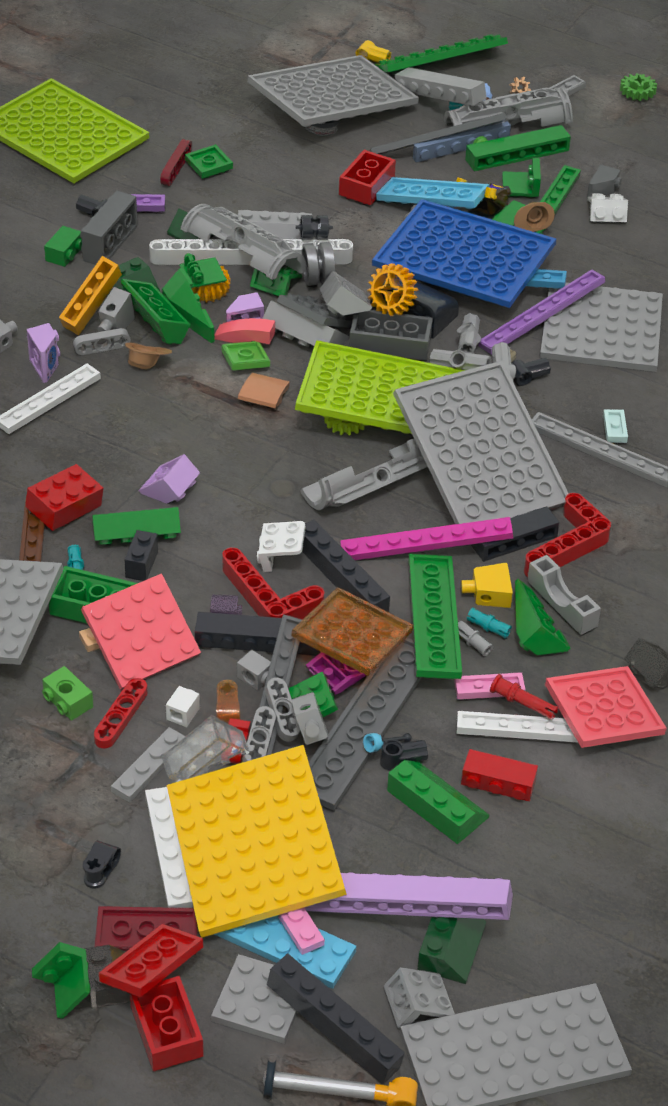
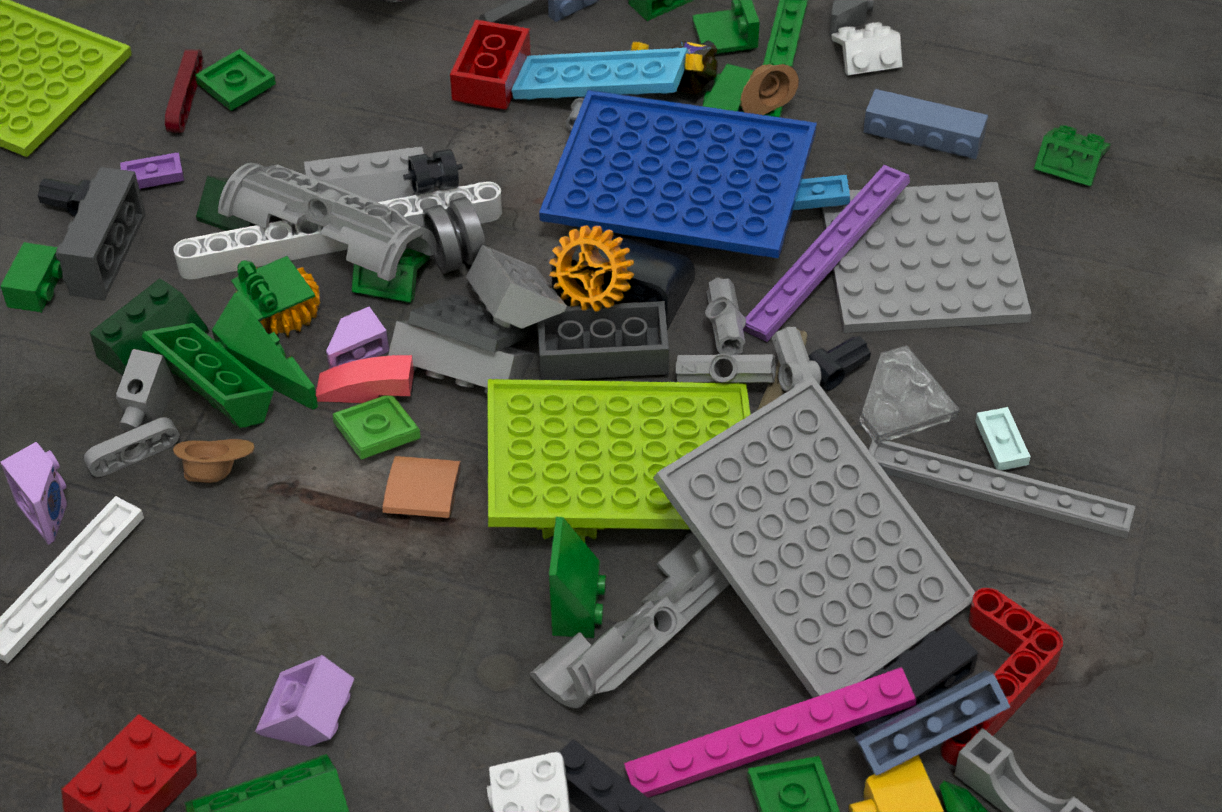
camera: 10 degrees left, 5 degrees up
(90, 295) = (96, 370): light orange brick -> none
(336, 444) = (574, 584): none -> green slope
(518, 544) = (932, 722): none -> sand blue brick
(563, 395) = (904, 398): none -> clear plate
(628, 254) = (925, 123): none -> sand blue brick

